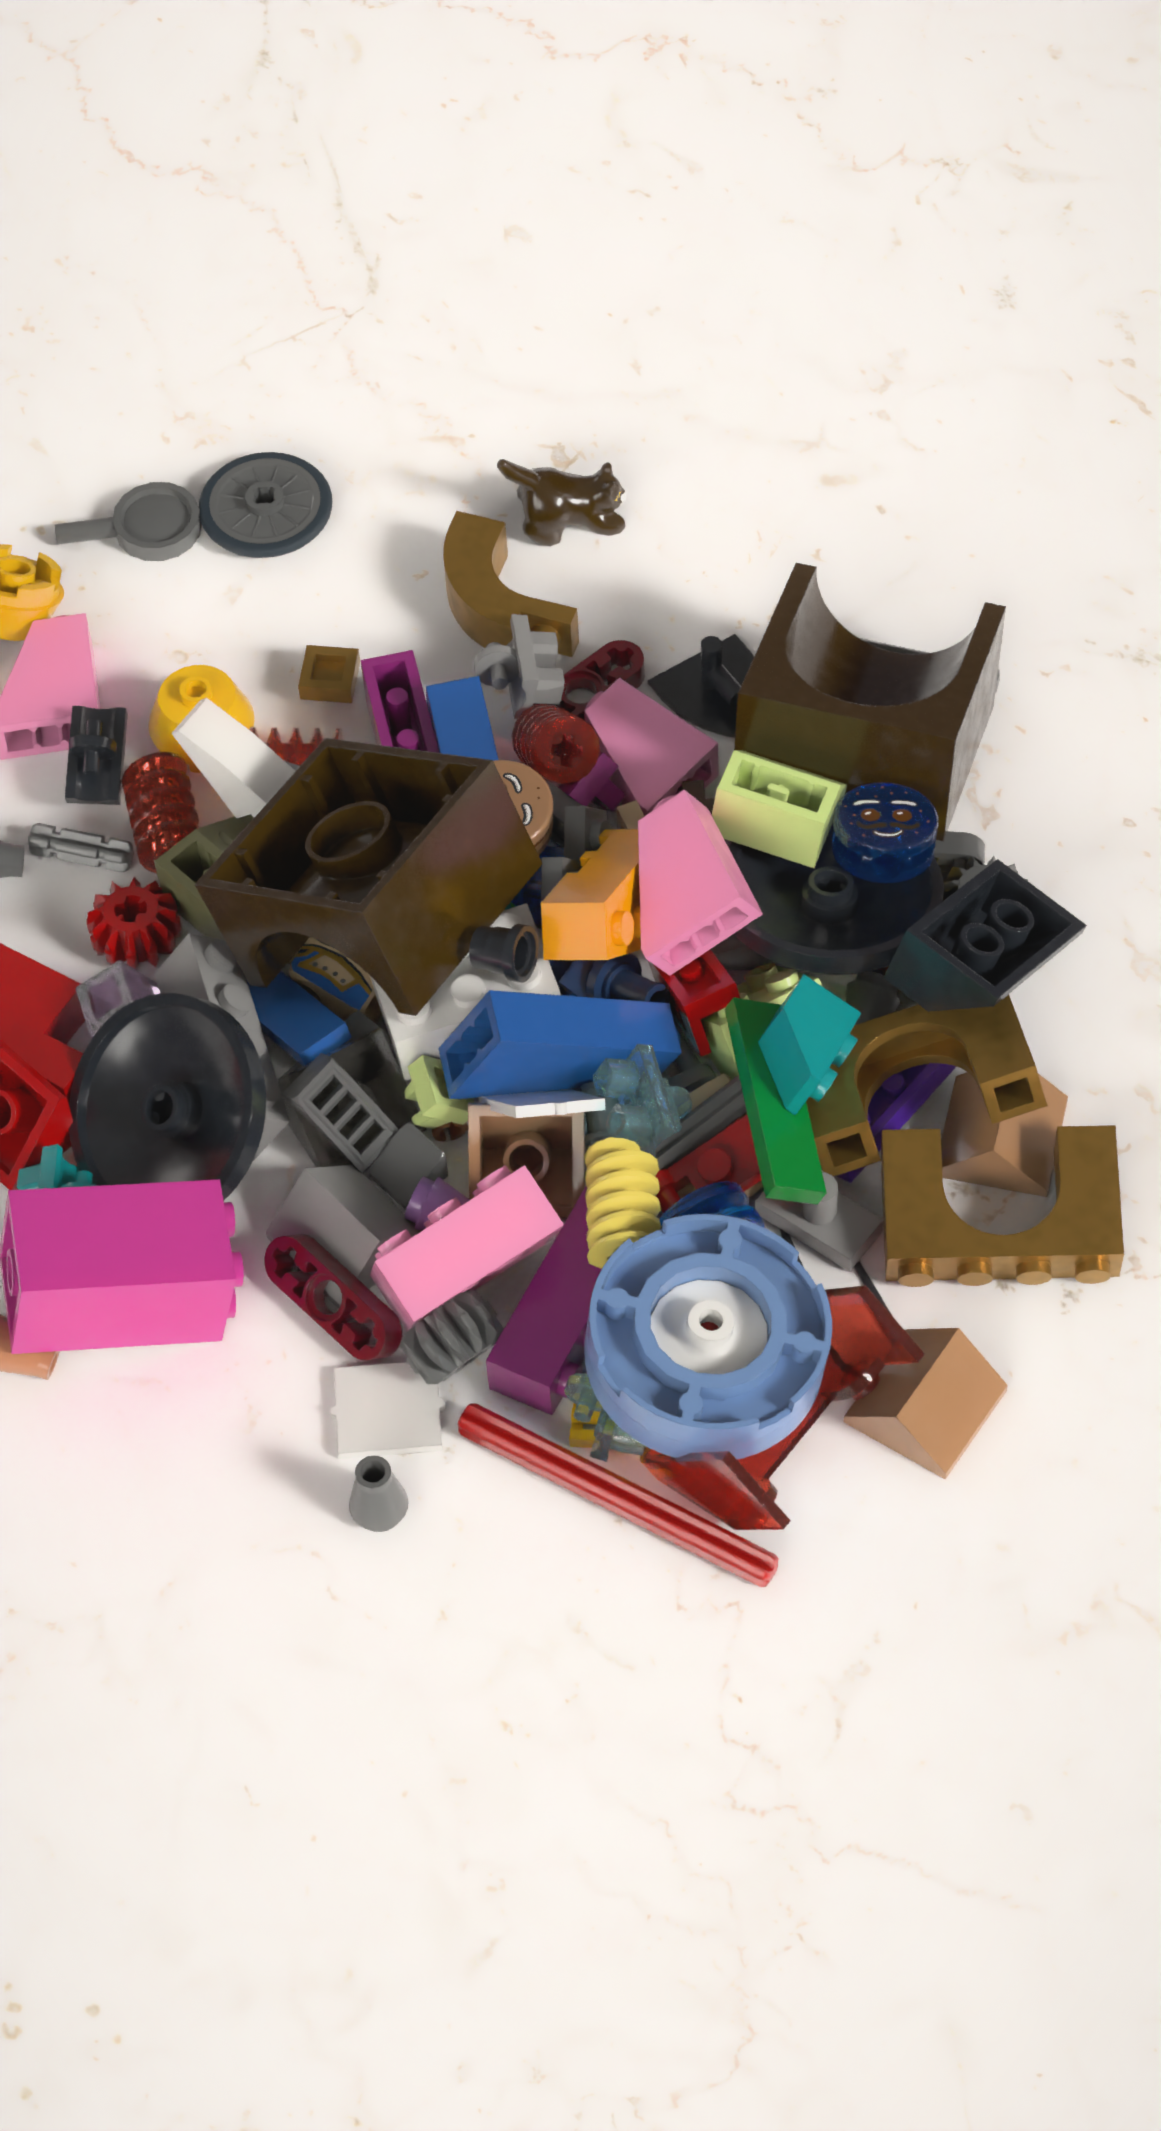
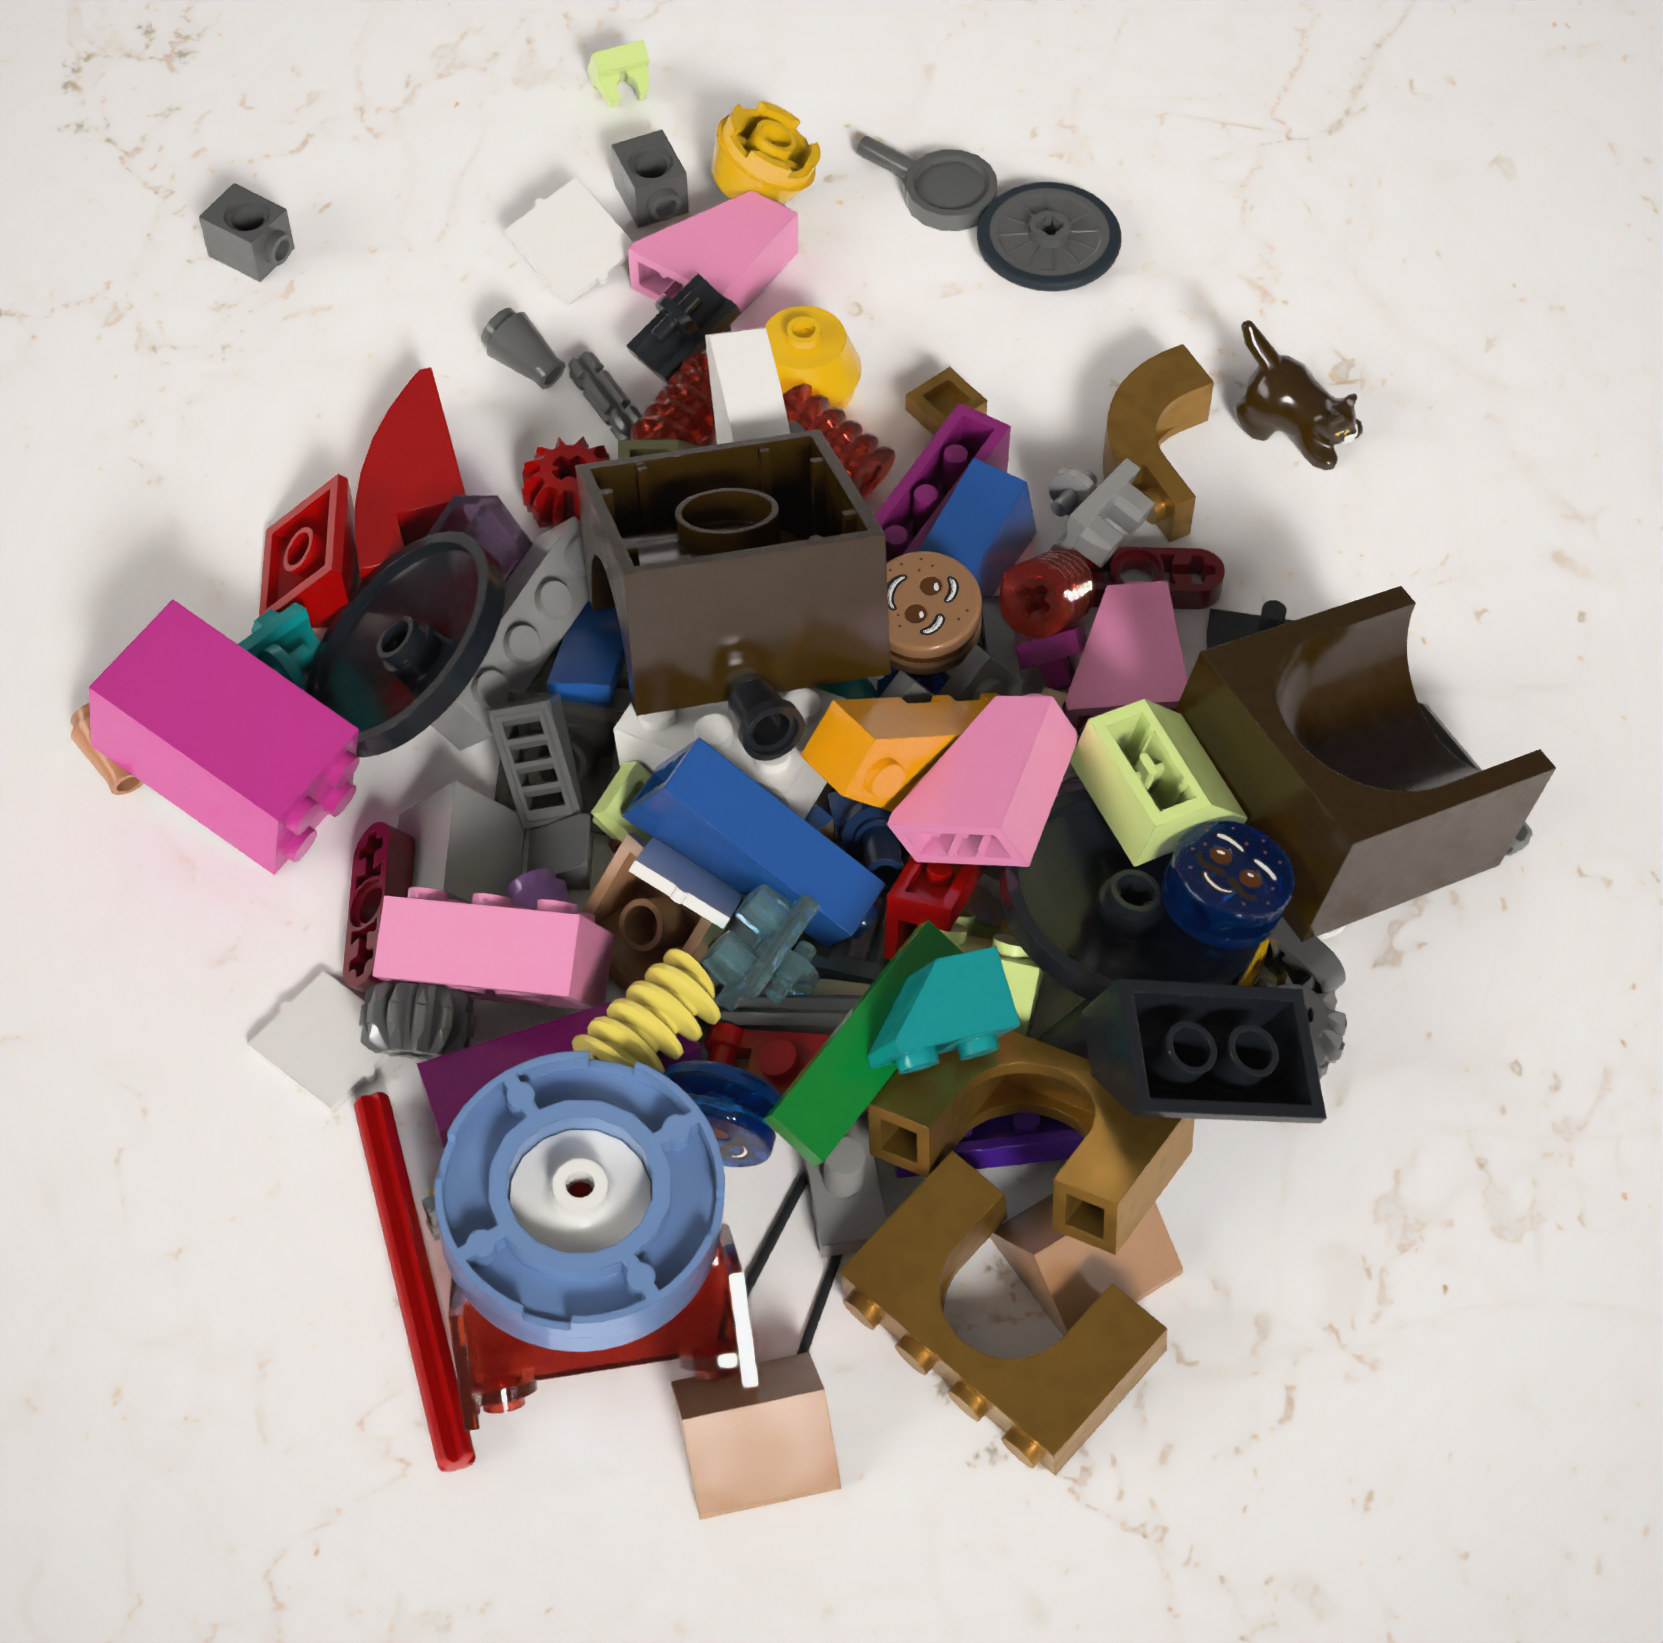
camera: 40 degrees right, 0 degrees up
(377, 1496) = (224, 1104): cone -> none

